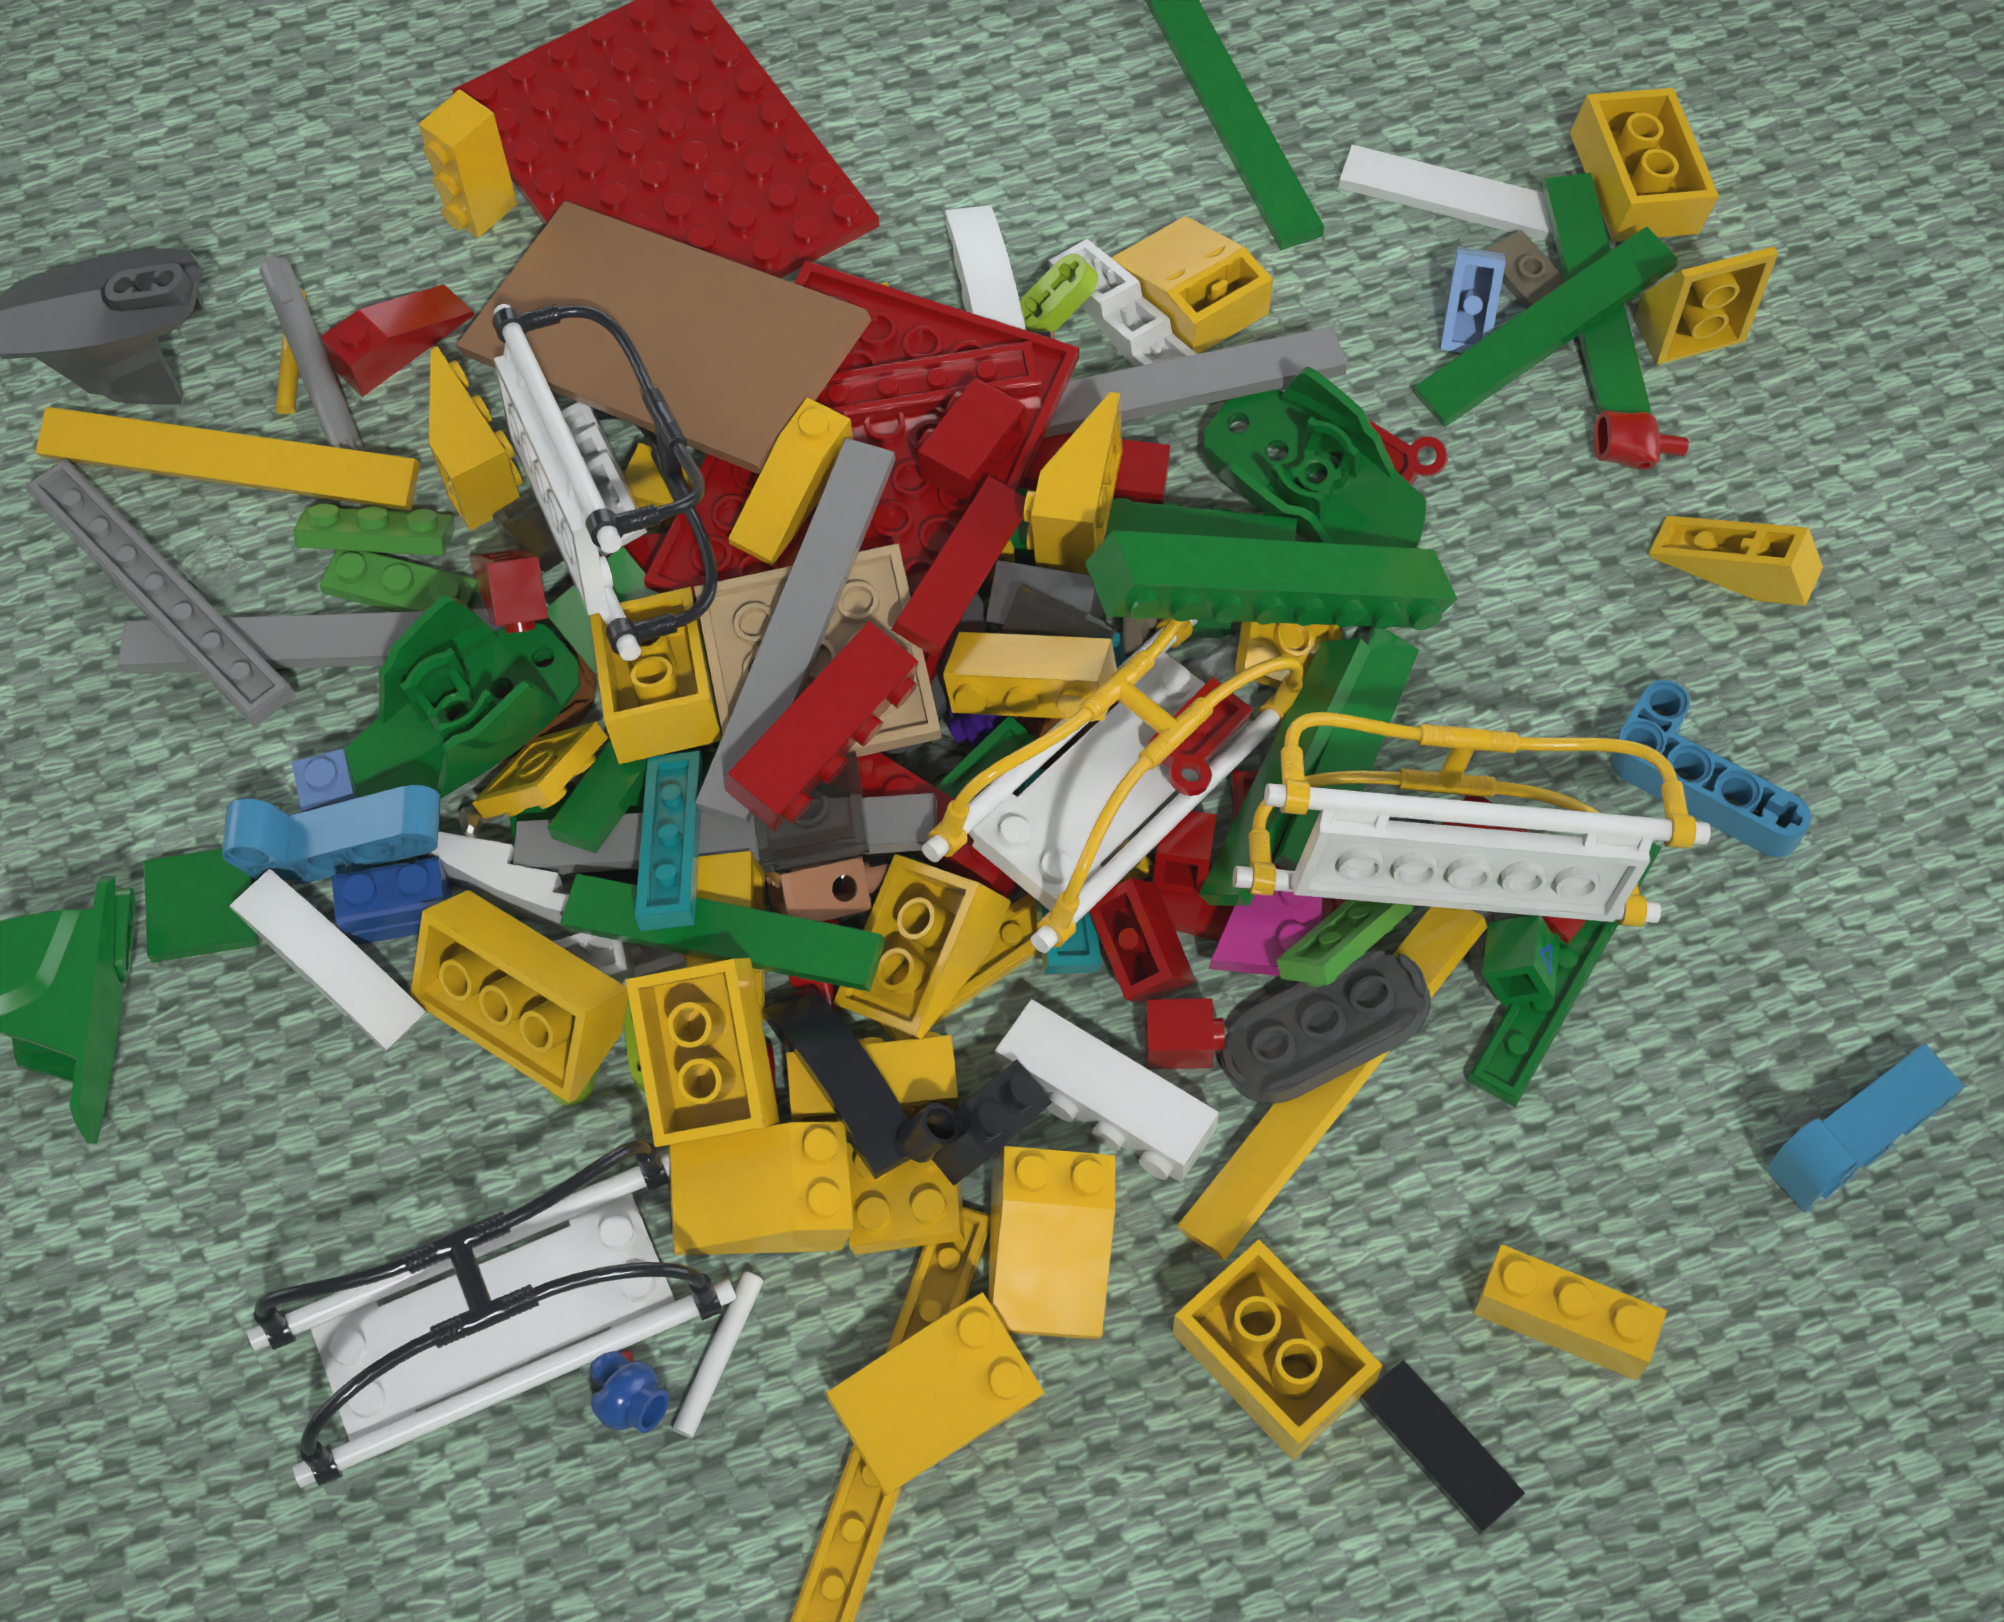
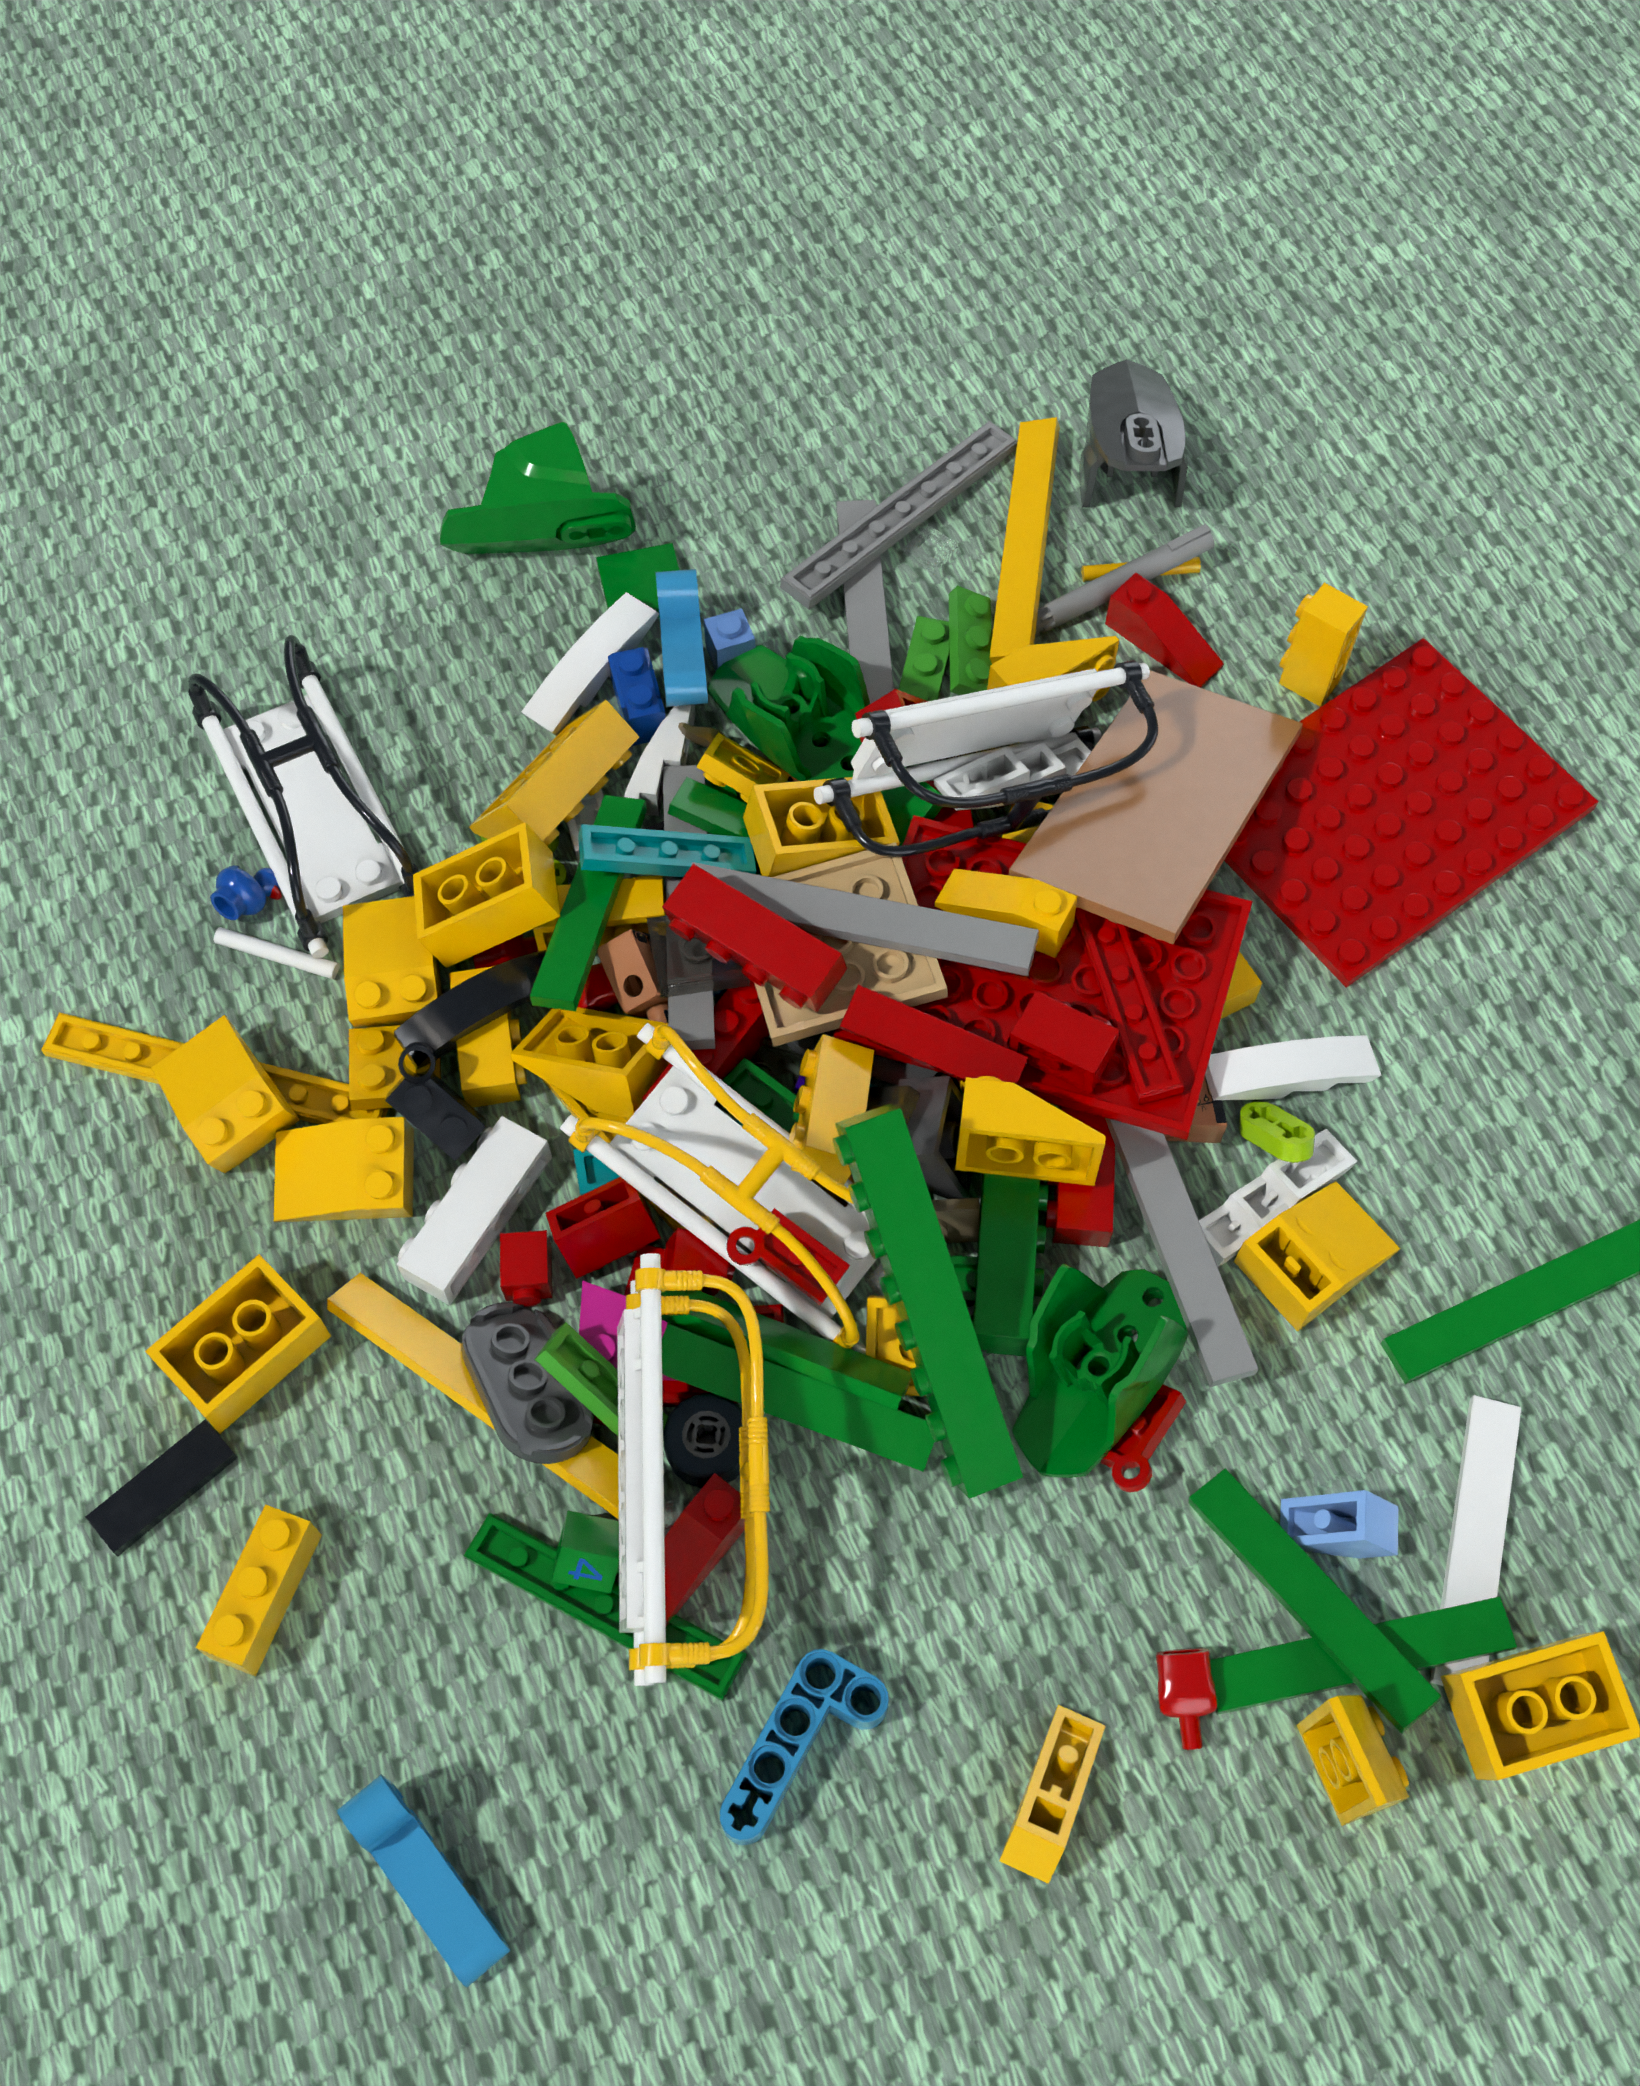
camera: 85 degrees right, 0 degrees up
(1527, 269) = (1392, 1585): dark tan plate -> none

